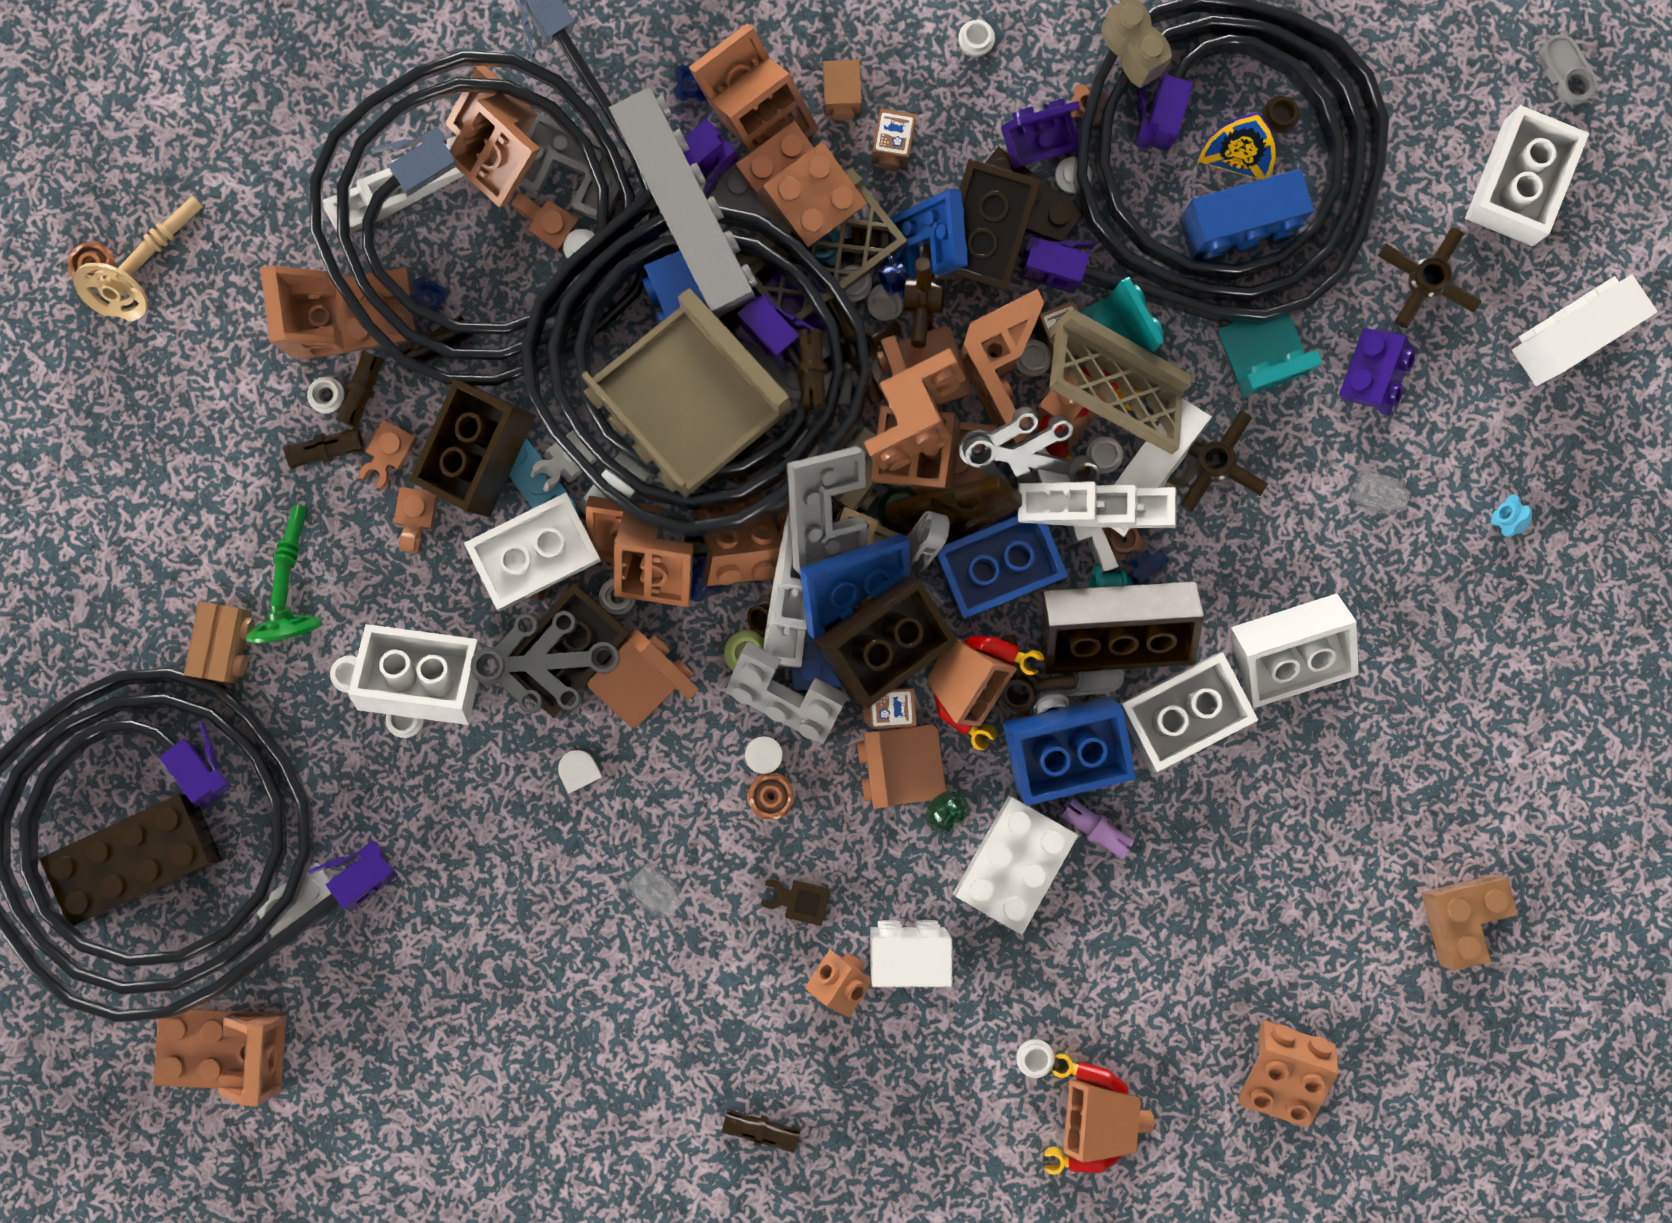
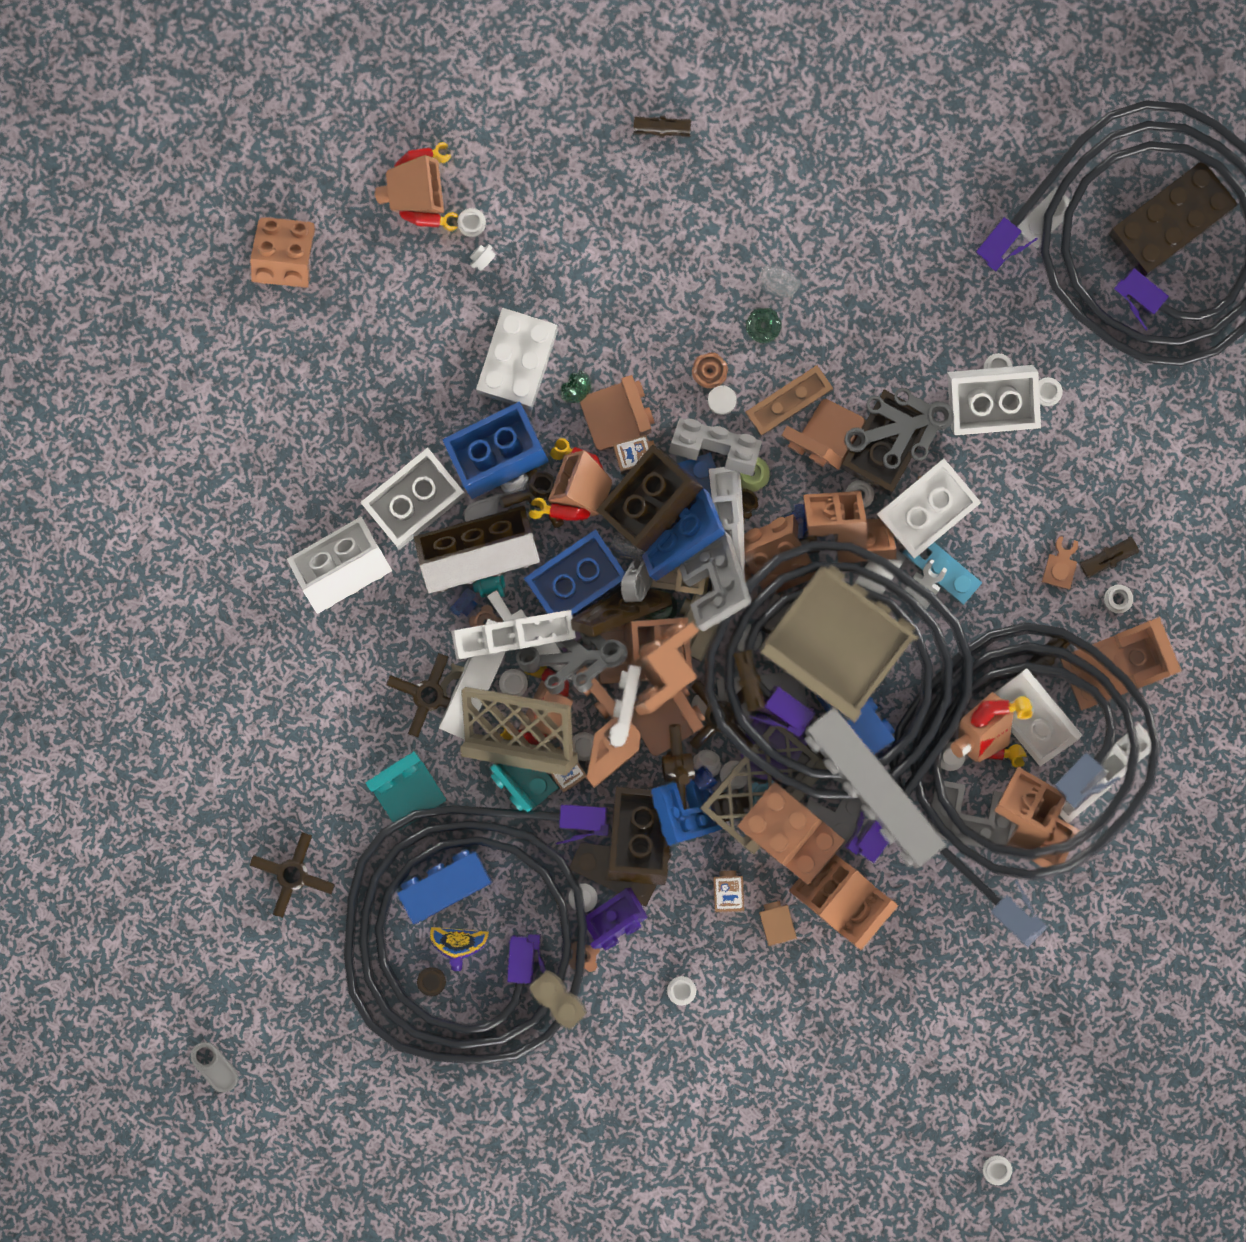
camera: 170 degrees right, 0 degrees up
(219, 643) = (1150, 392): medium nougat brick -> none
(222, 1051) = (1070, 97): nougat bracket -> none
(281, 620) = (1106, 420): green dish -> none
(360, 389) = (1093, 608): dark brown pin -> none
(415, 512) = (1028, 525): nougat plate -> none
(430, 288) = (1064, 697): clear blue plate -> none
(465, 266) = (1048, 729): none -> white plate
(472, 448) = (993, 577): dark brown brick -> none
(524, 260) = (987, 730): none -> torso
(548, 223) = (981, 772): nougat plate -> none
(578, 770) = (858, 358): white tile -> none
(677, 843) = (772, 322): none -> clear green plate
(678, 734) = (789, 400): none -> medium nougat plate
(683, 89) = (902, 910): clear blue plate -> none
(804, 901) = (667, 298): dark brown plate -> none
(840, 982) = (628, 245): nougat brick -> none
(910, 955) = (582, 274): white brick -> none
(978, 375) = (624, 707): none -> white hinge
(1031, 1009) = (482, 257): none -> white plate
(1096, 827) = (461, 400): lavender pin -> none
(1378, 370) = (317, 794): dark purple bracket -> none
(1380, 492) = (298, 699): clear brick -> none
(1457, 917) = (181, 395): medium nougat brick -> none
(1512, 516) = (194, 703): medium azure plate -> none
(1527, 176) = (233, 969): white brick -> none
(1582, 328) = (170, 855): white brick -> none

